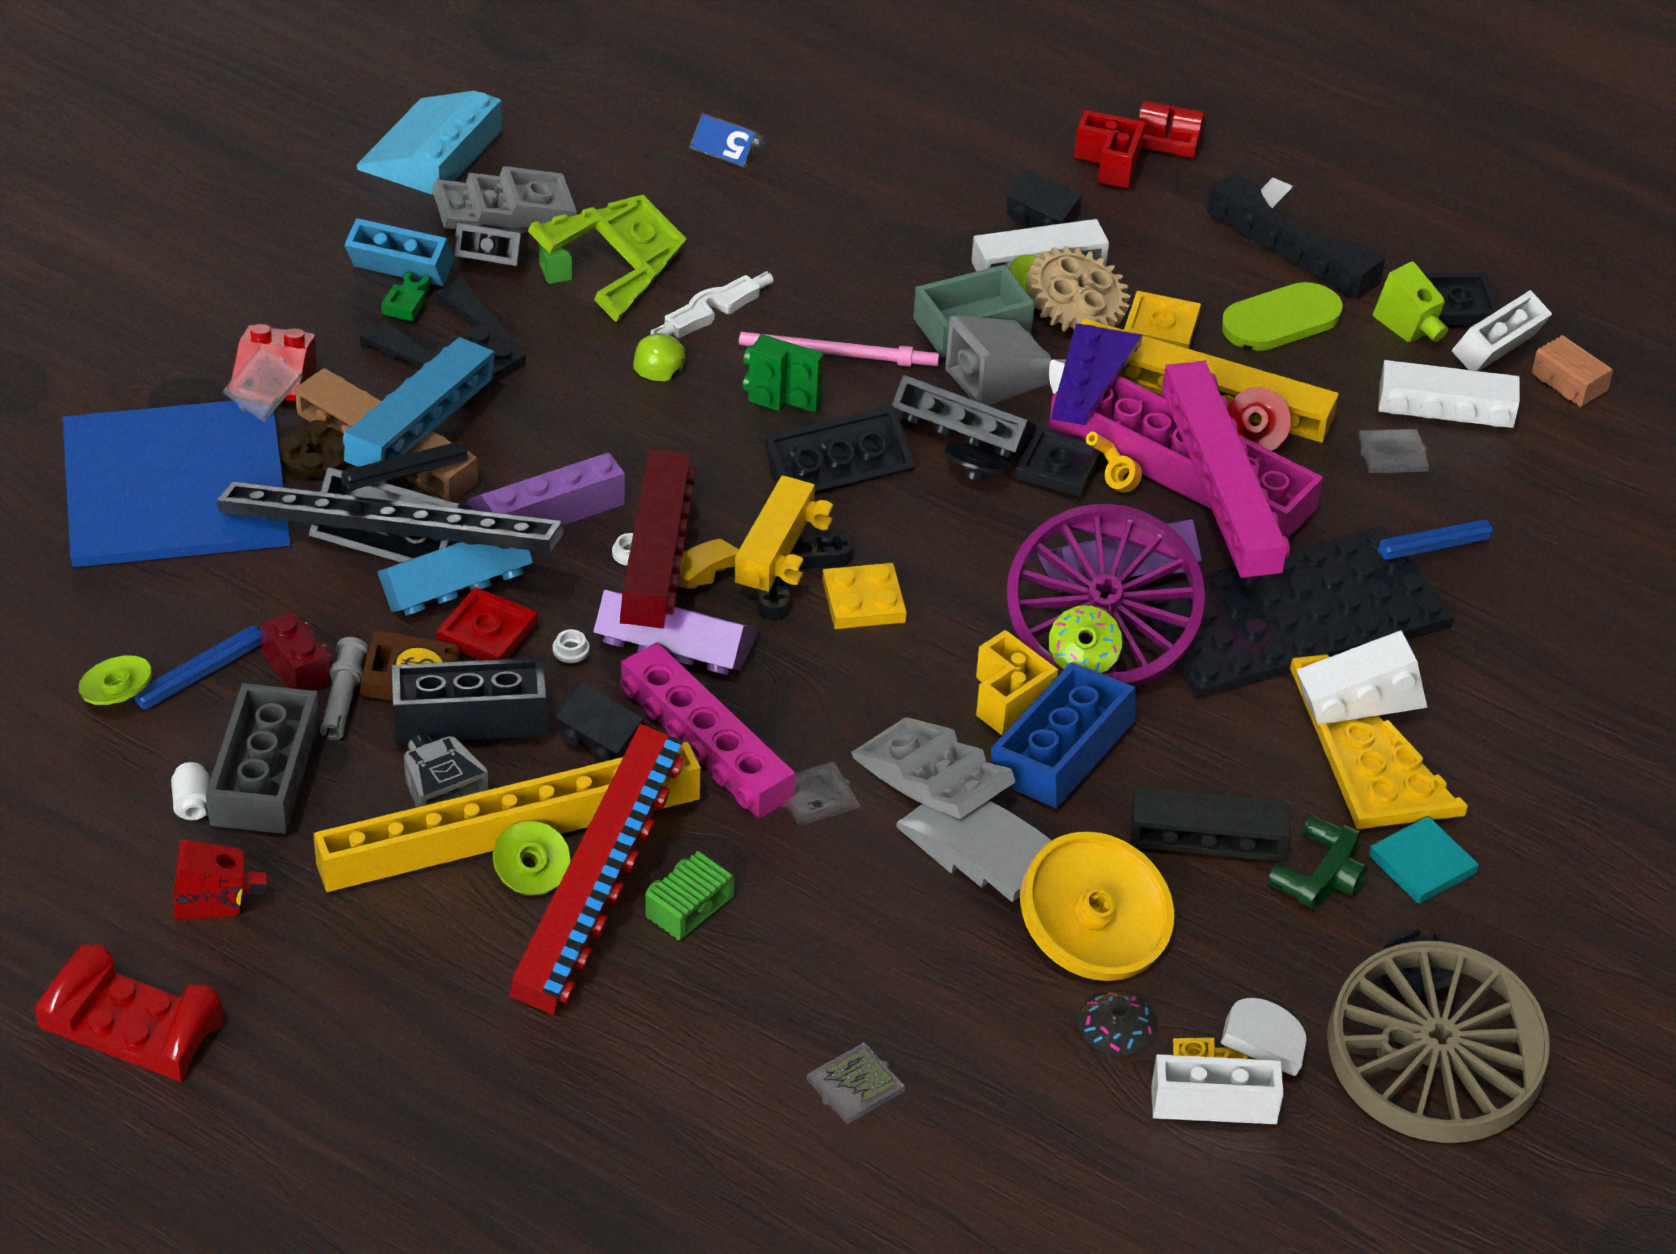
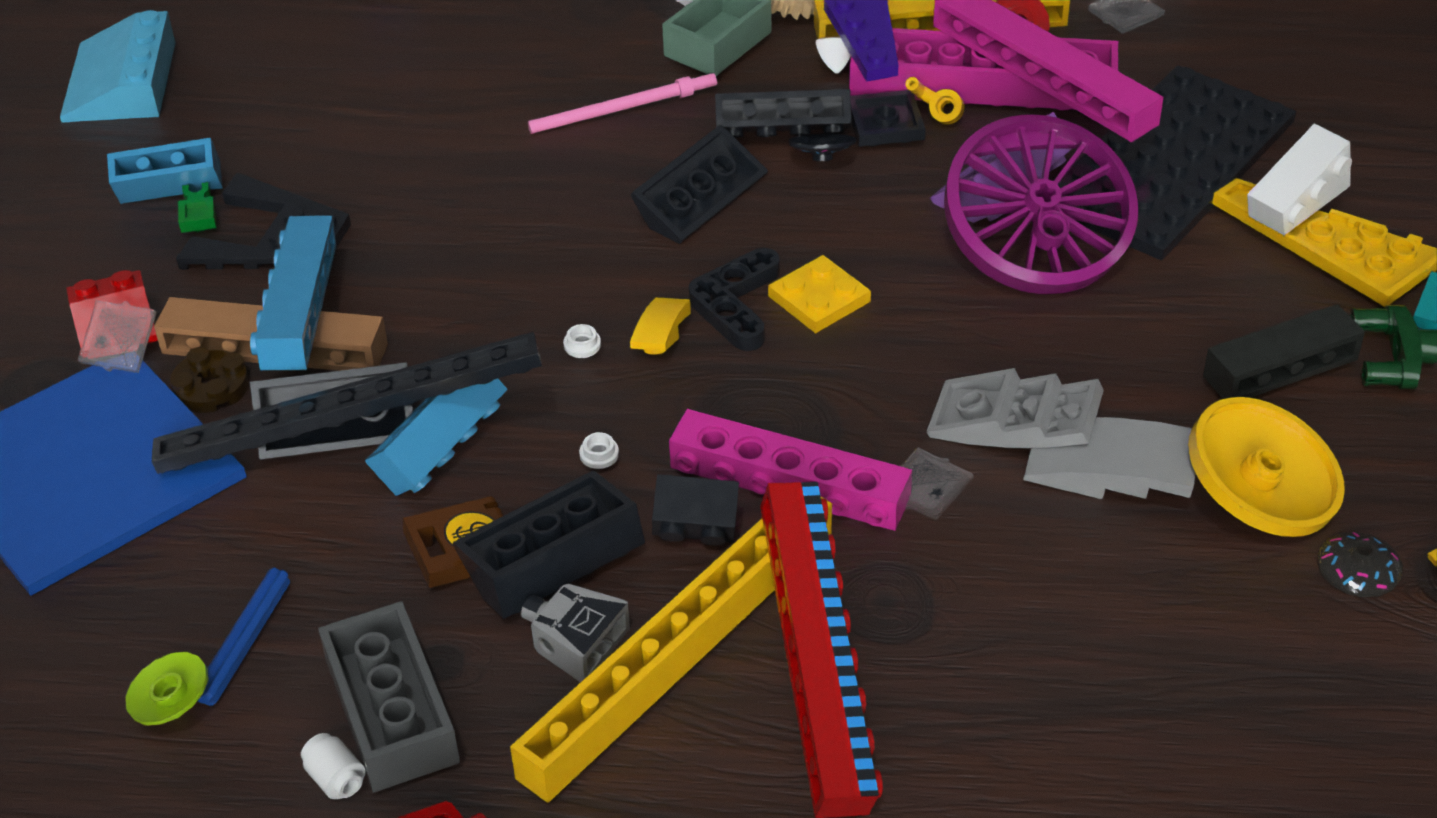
camera: 25 degrees left, 0 degrees up
(296, 653) = (339, 576): dark red brick -> none
(346, 675) = (404, 575): light grey pin -> none
(404, 465) = (326, 350): black axle -> none
(487, 626) = (506, 467): red plate -> none
(491, 243) = (246, 131): black brick -> none
(504, 200) = (226, 96): light grey slope -> none
(532, 841) = (739, 655): lime dish -> none
(556, 265) = (314, 126): bright green slope -> none
(560, 494) = (480, 316): medium lavender slope -> none
(634, 231) = (371, 74): lime wing -> none
(658, 540) = (619, 319): dark red brick -> none
(659, 357) = (472, 169): lime hair -> none
(685, 635) = (701, 389): slope -> none
(688, 895) = (904, 631): bright green brick -> none
(726, 299) = (478, 111): white piece -> none
(776, 531) = (712, 271): yellow brick -> none
(783, 374) = (604, 136): green plate -> none
(855, 1083) = (1198, 736): piece -> none
(994, 358) = (765, 58): light grey slope -> none
(1010, 680) = (1020, 303): yellow brick -> none
(1065, 733) = (1101, 329): blue brick -> none
(1097, 655) = (1049, 257): lime dish -> none
(1435, 539) = (1229, 58): blue axle -> none

